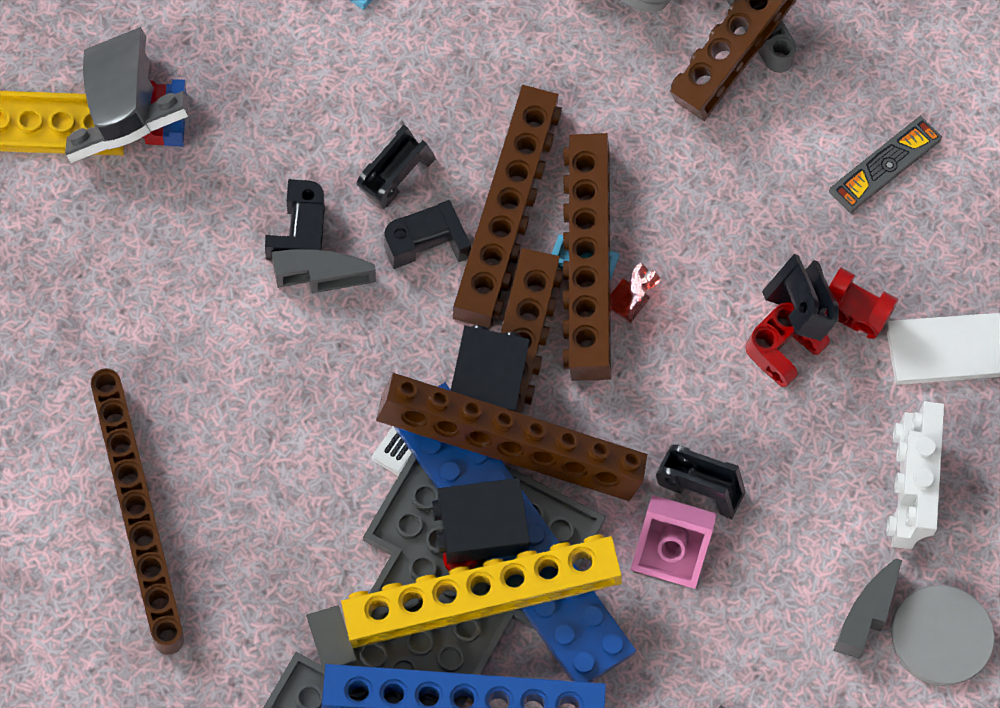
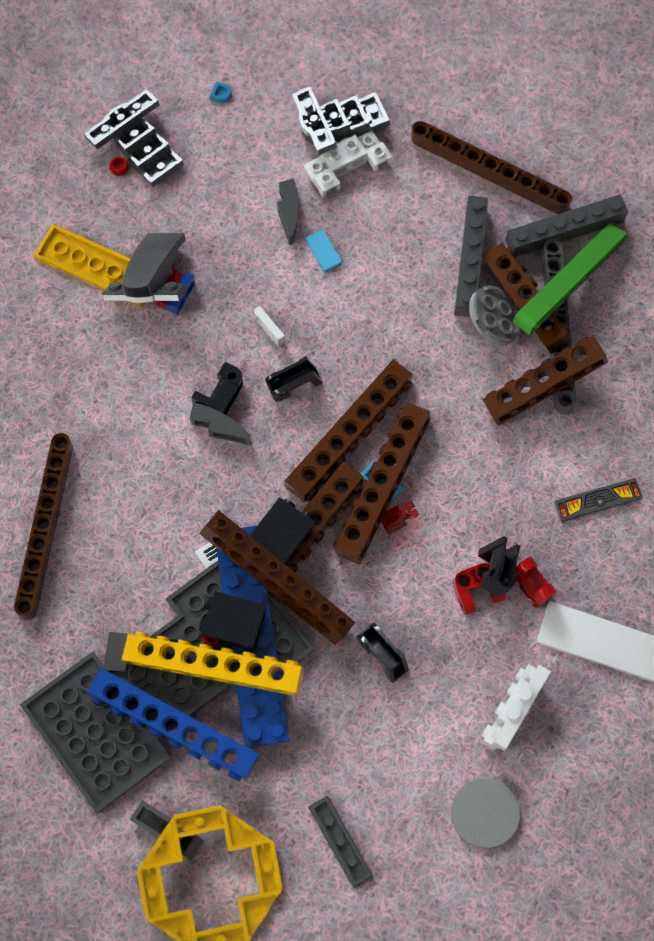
camera: 30 degrees right, 5 degrees up
(325, 109) = (269, 326): none -> white tile
(423, 231) = (290, 426): black piece -> none
(673, 541) = (348, 681): bright pink slope -> none
(868, 611) = (445, 777): dark grey slope -> none

